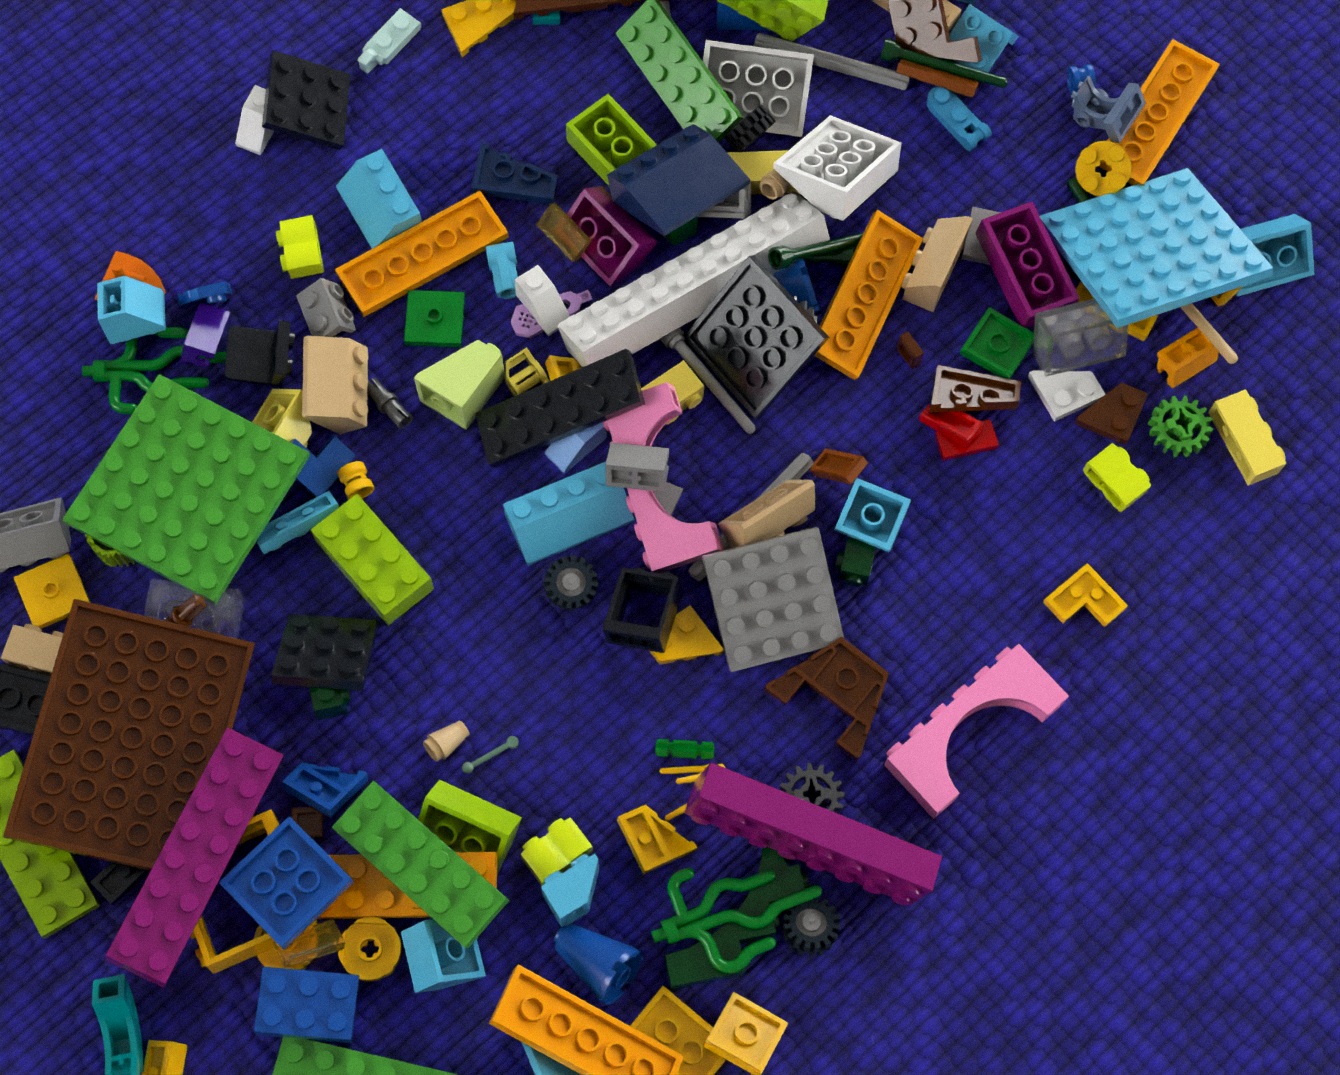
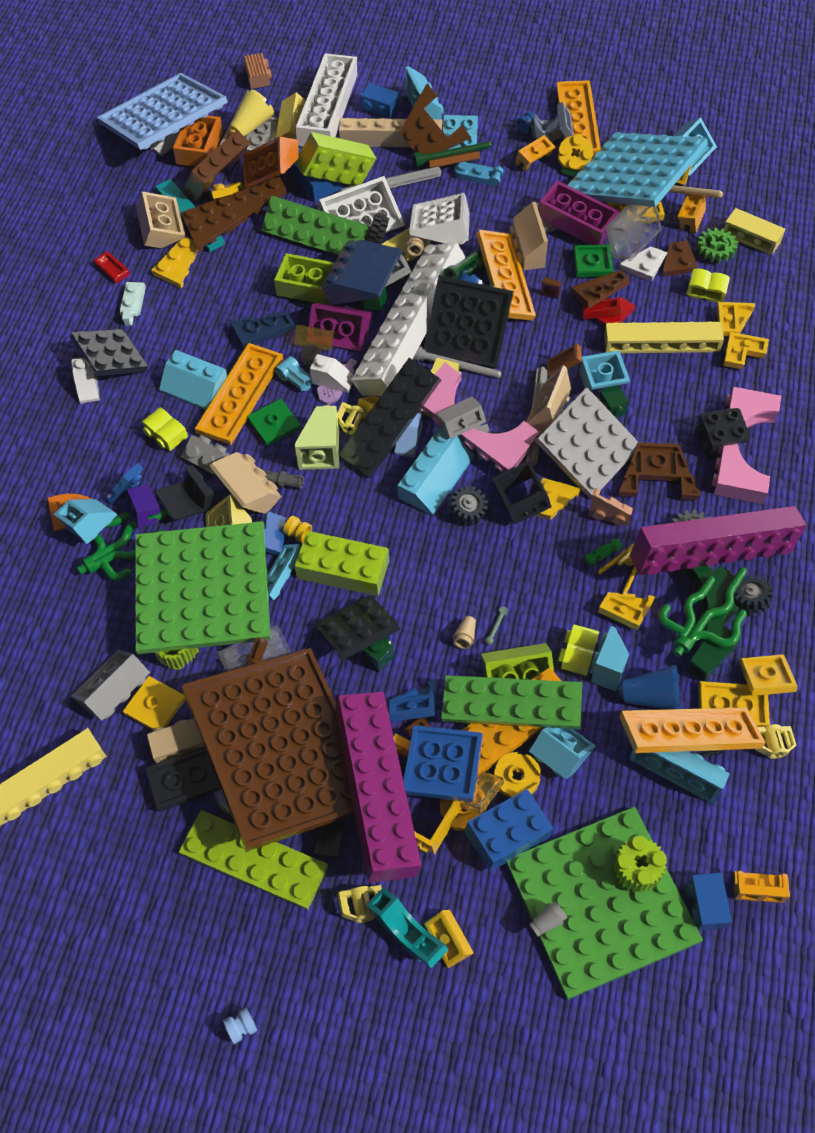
camera: 30 degrees left, 10 degrees down
(99, 959) = (360, 899): none -> light yellow piece
(544, 258) = (308, 355): none -> clear smoke wheel
(721, 695) = (609, 510): none -> nougat wing
(956, 692) = (721, 429): none -> black bracket
(995, 513) = (663, 337): none -> light yellow brick
(1051, 133) = (534, 151): none -> light orange hinge
(1112, 544) = (733, 316): none -> yellow wing

